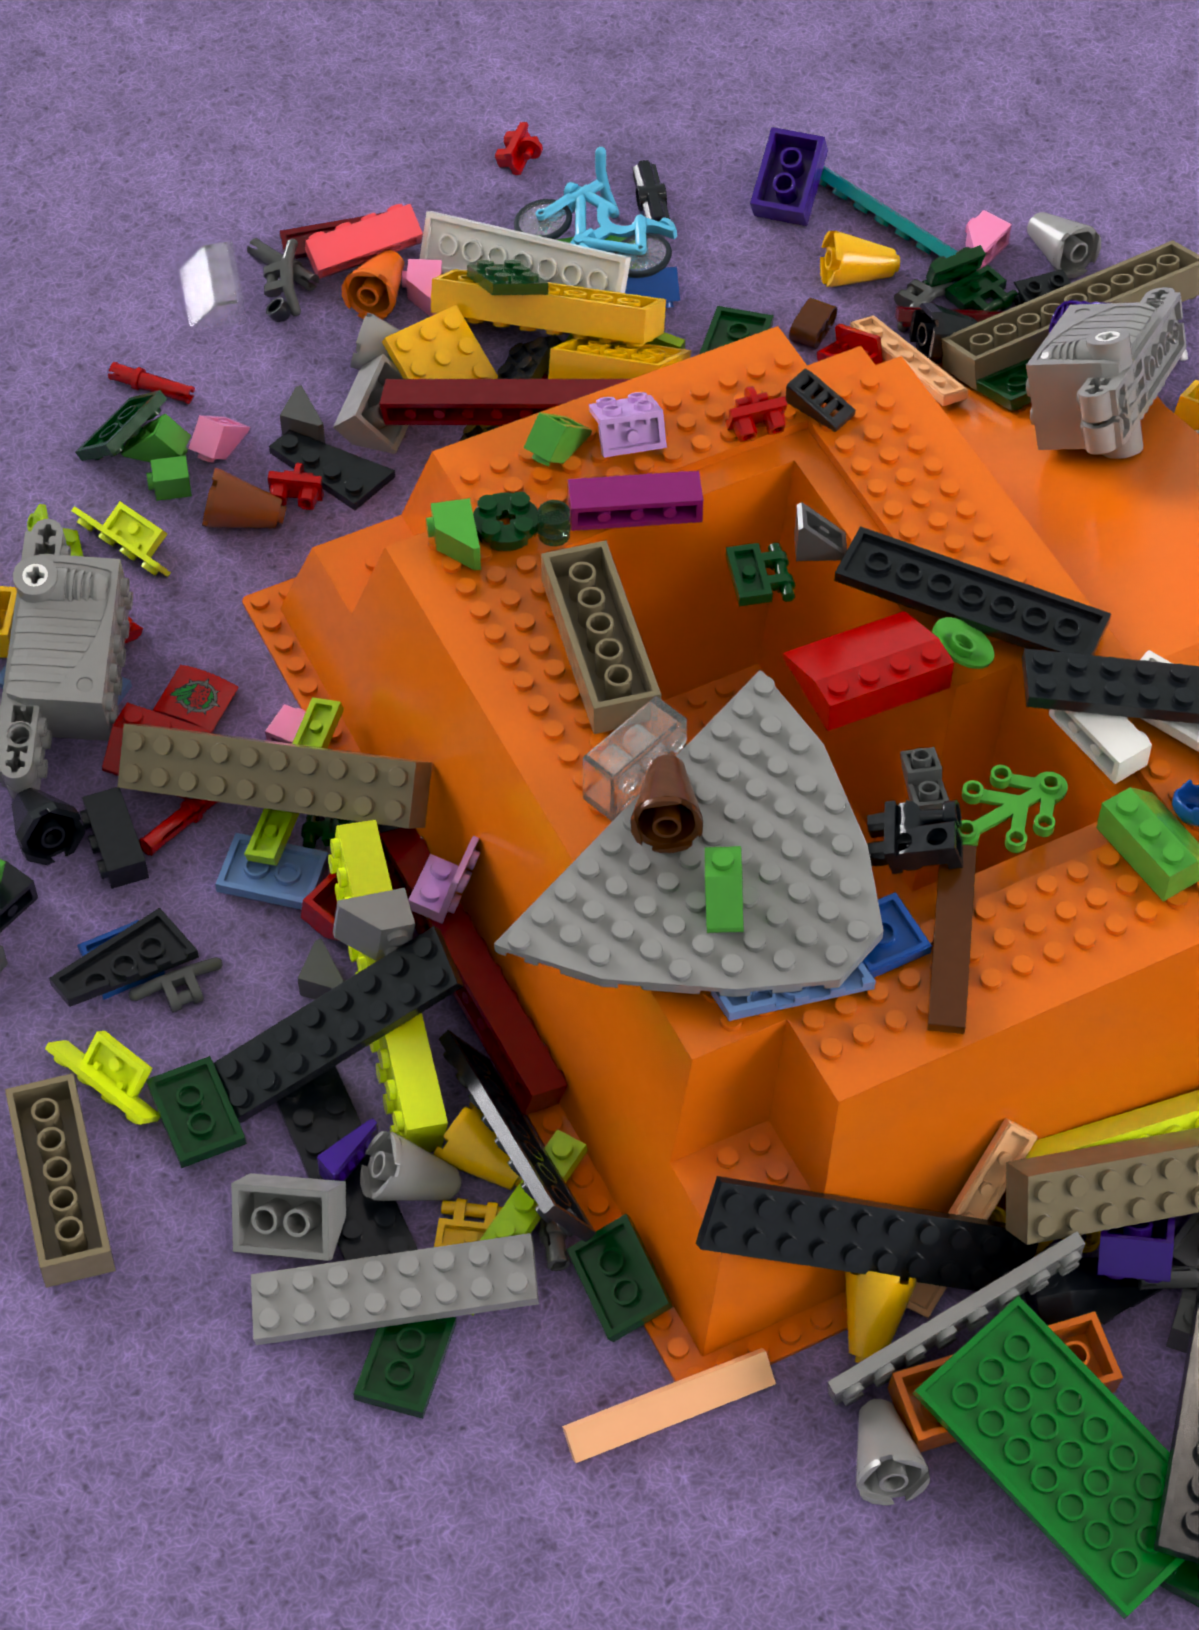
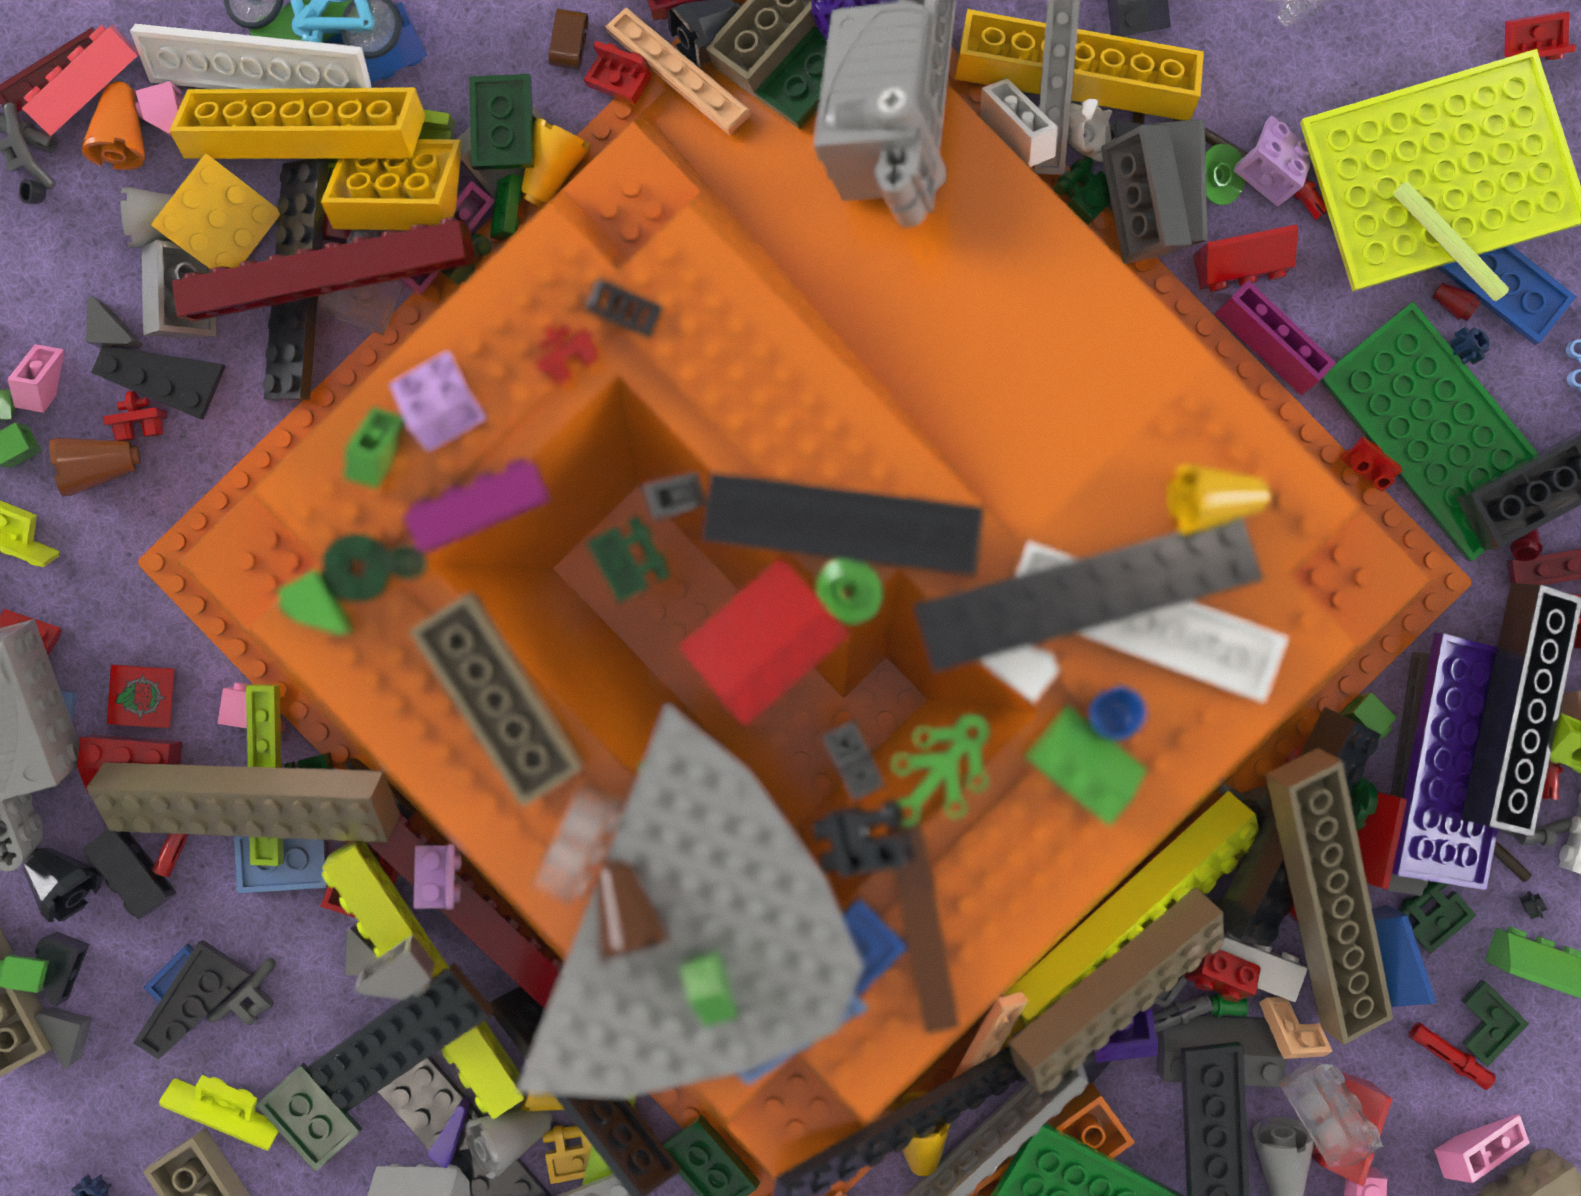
camera: 25 degrees left, 35 degrees up
(507, 278) = (245, 113): dark green plate -> none

